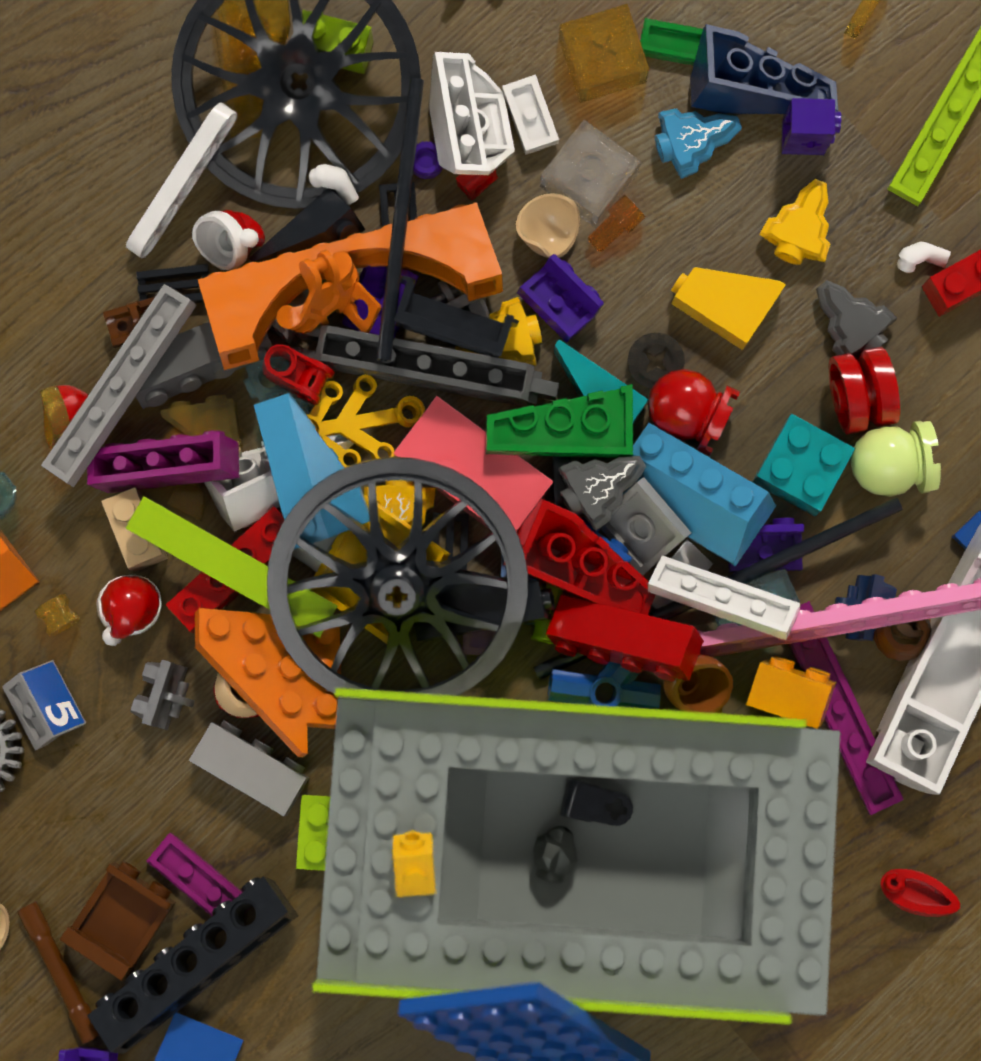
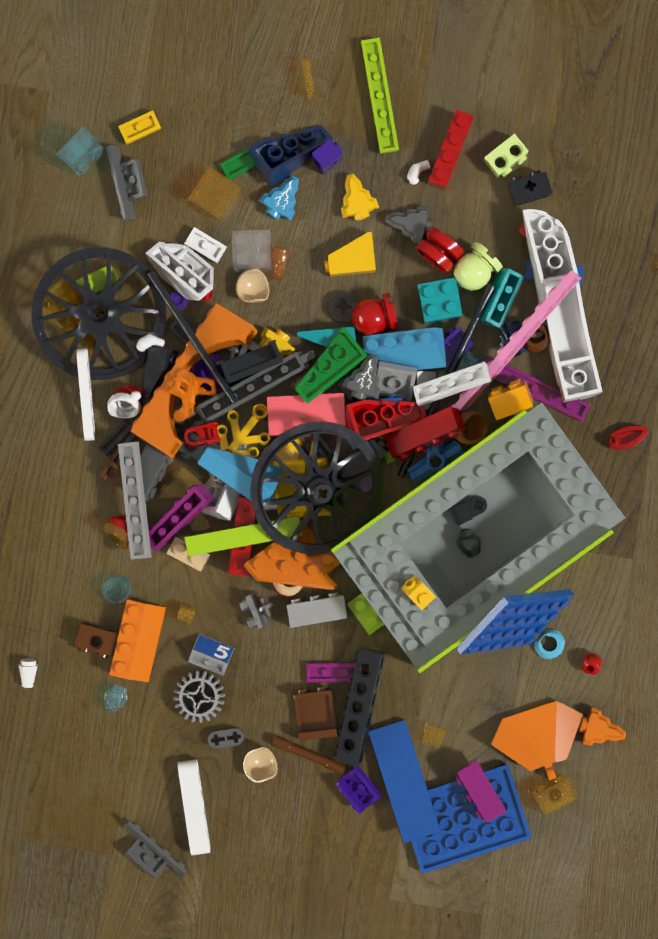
camera: 35 degrees left, 5 degrees up
(128, 607) = (212, 587): red piece -> none
(561, 298) = (283, 313): dark purple bracket -> none
(916, 526) = (506, 287): none -> teal brick

